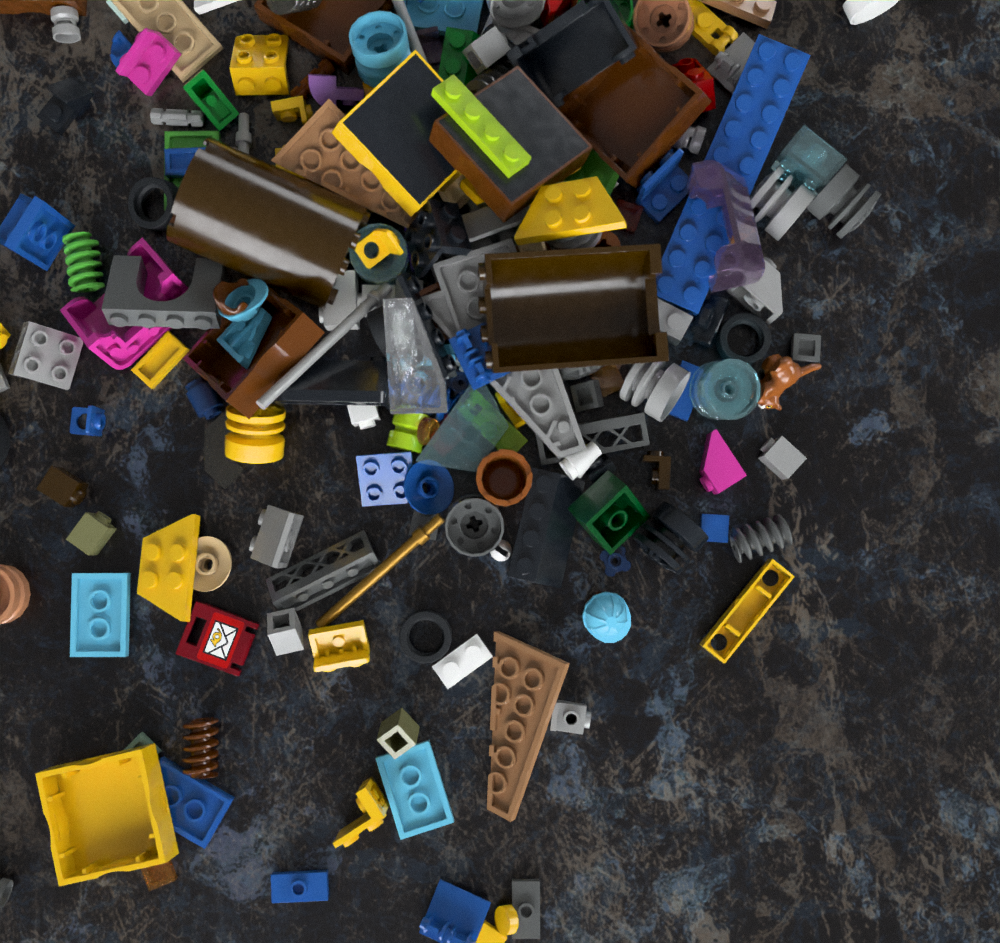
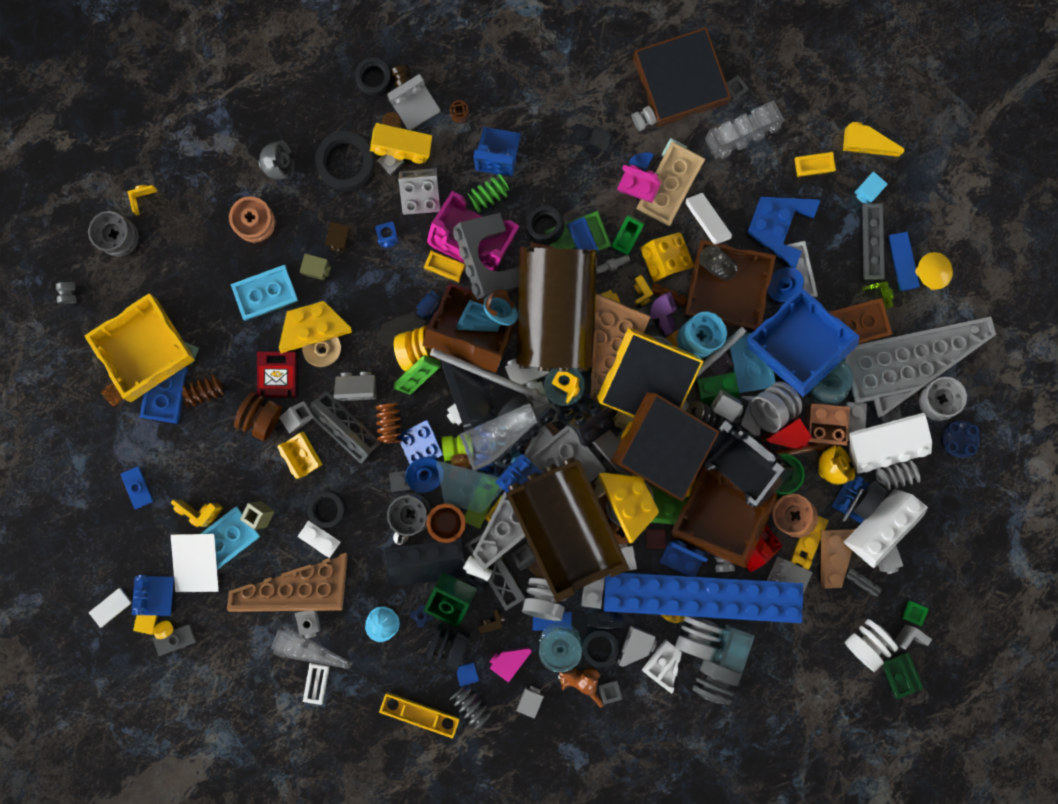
camera: 65 degrees right, 0 degrees up
(177, 117) = (610, 215): light grey axle -> none
(258, 688) = (260, 417): none -> reddish brown wheel
(289, 444) = (417, 374): none -> bright green tile
(341, 510) = (388, 423): none -> dark orange piece
(419, 536) = (389, 481): pearl gold bar -> none
(431, 843) = (194, 563): none -> white sticker
(481, 126) = (664, 424): lime plate -> none
(593, 748) = (292, 645): none -> clear wedge
(634, 723) = (308, 683): none -> white tile
(742, 259) = (687, 603): clear purple windscreen -> none
(796, 265) = (664, 665): none -> white wing

